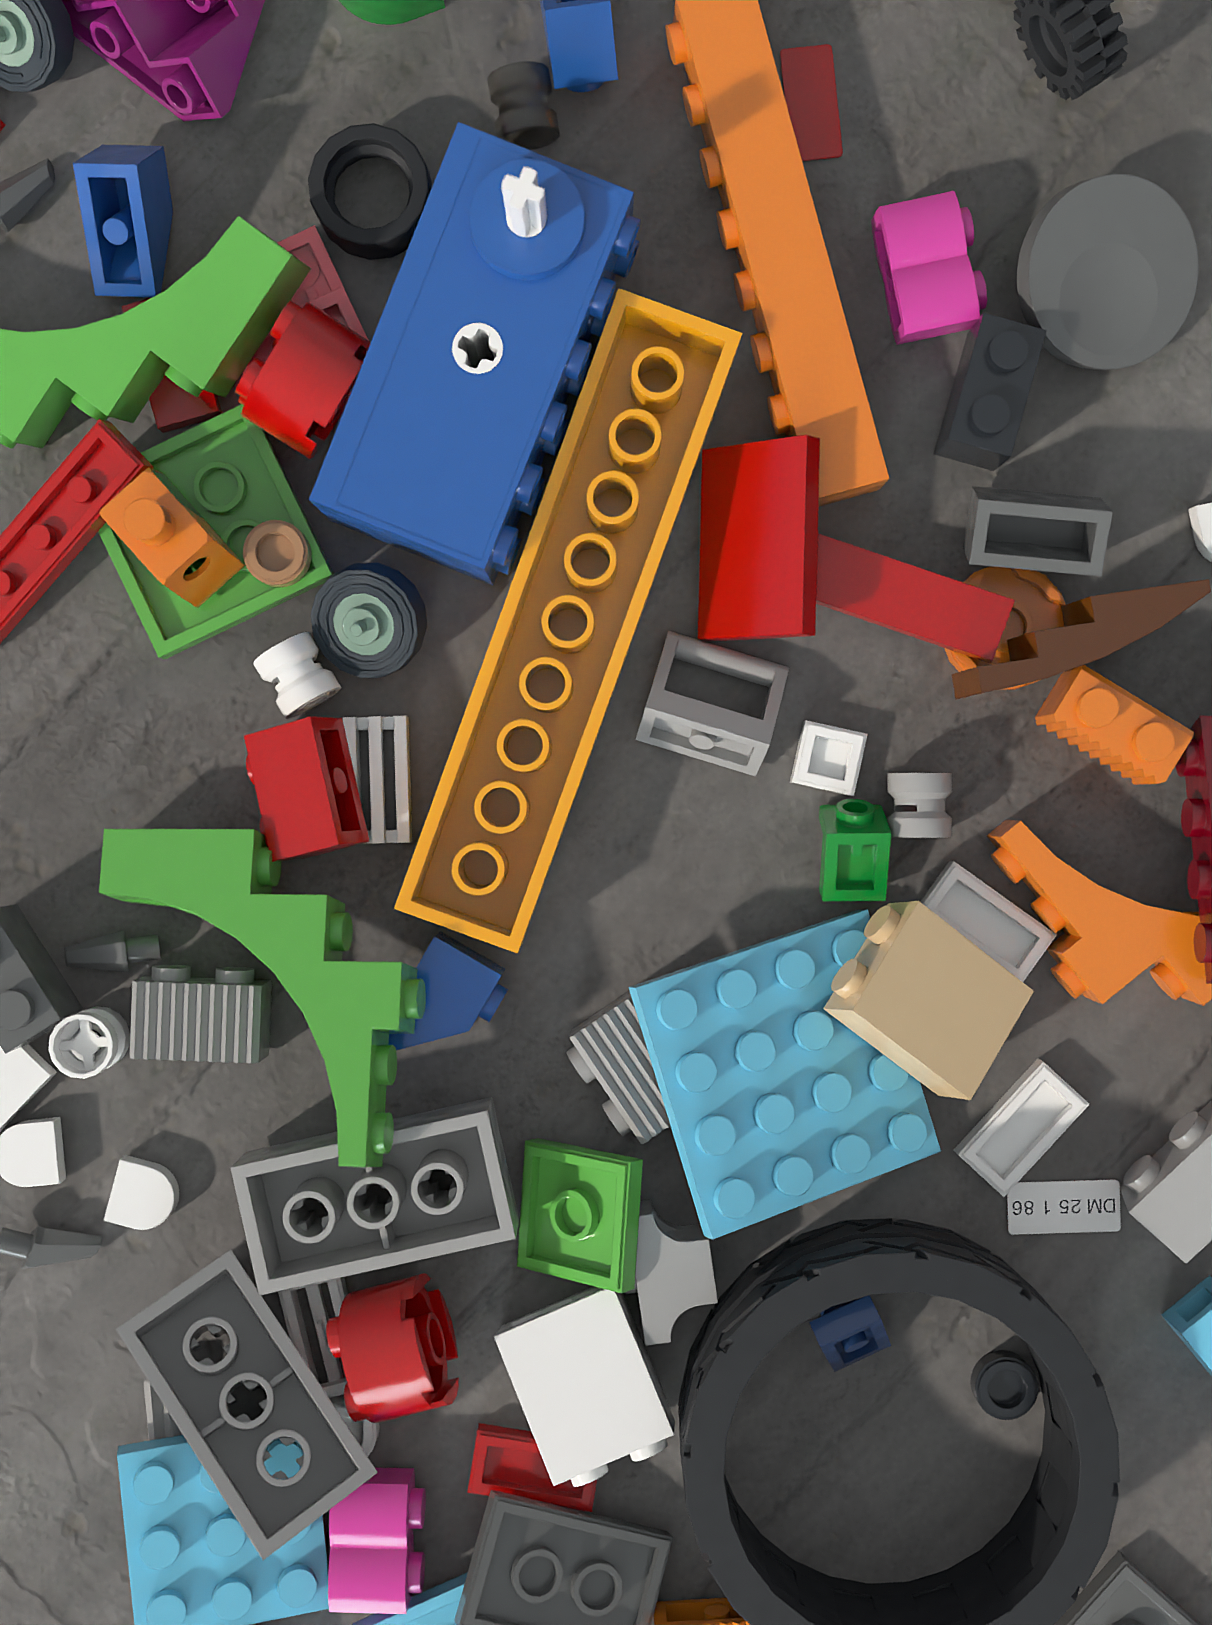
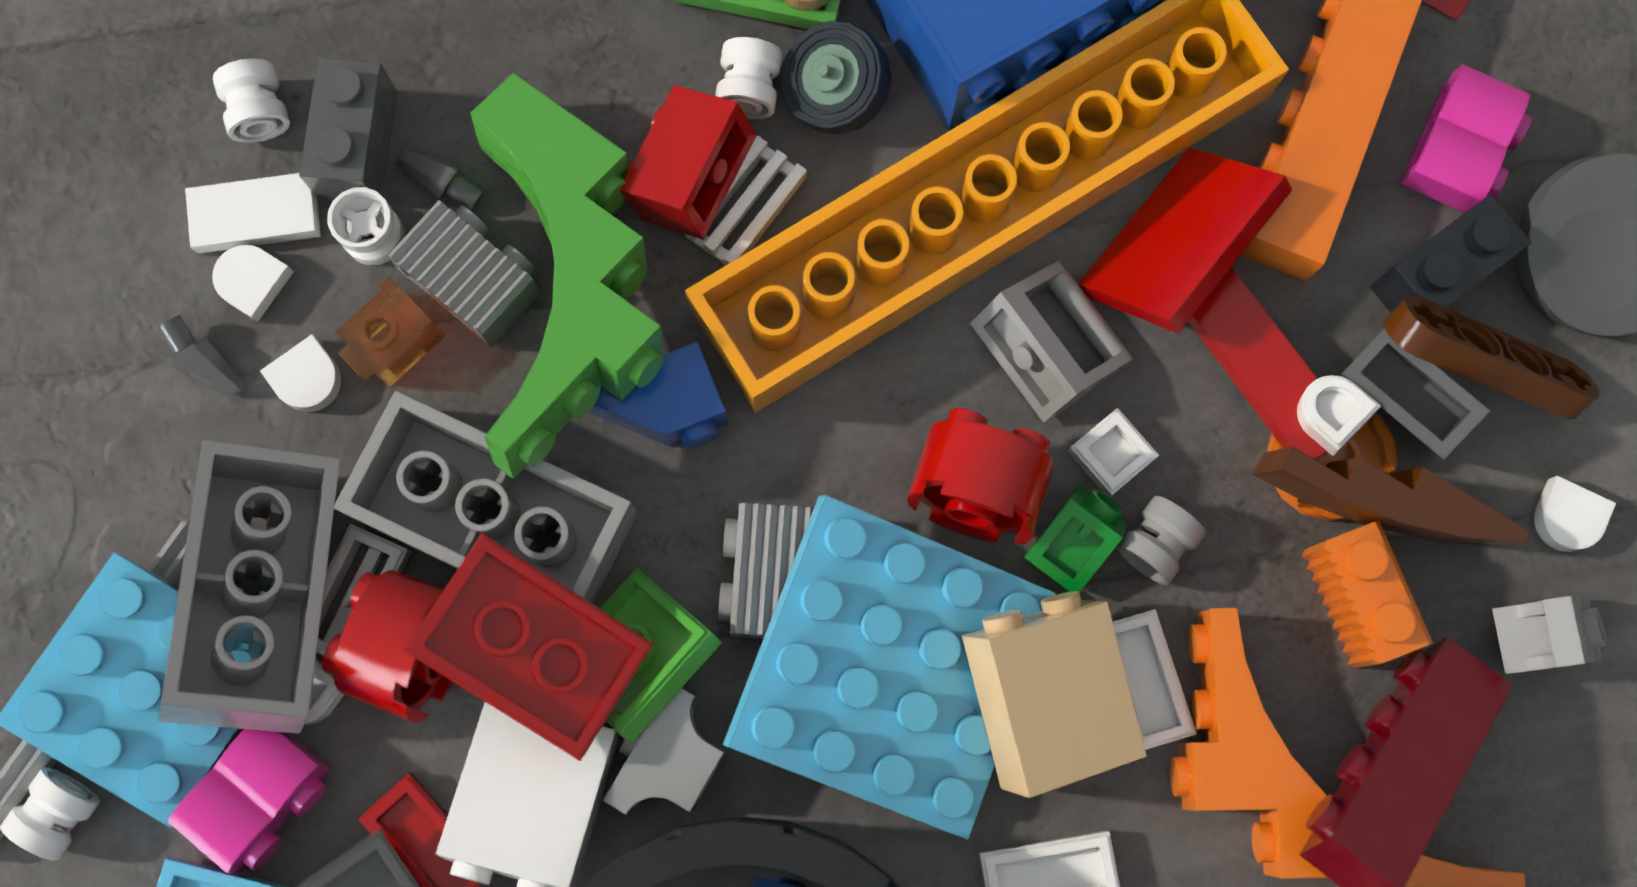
camera: 30 degrees right, 10 degrees down
(193, 1096) = (409, 338): none -> clear orange brick
(501, 1288) = (529, 647): none -> red tile
(745, 870) = (982, 477): none -> red brick
(985, 599) = (1334, 411): none -> white tile
(1087, 449) = (1490, 357): none -> reddish brown beam

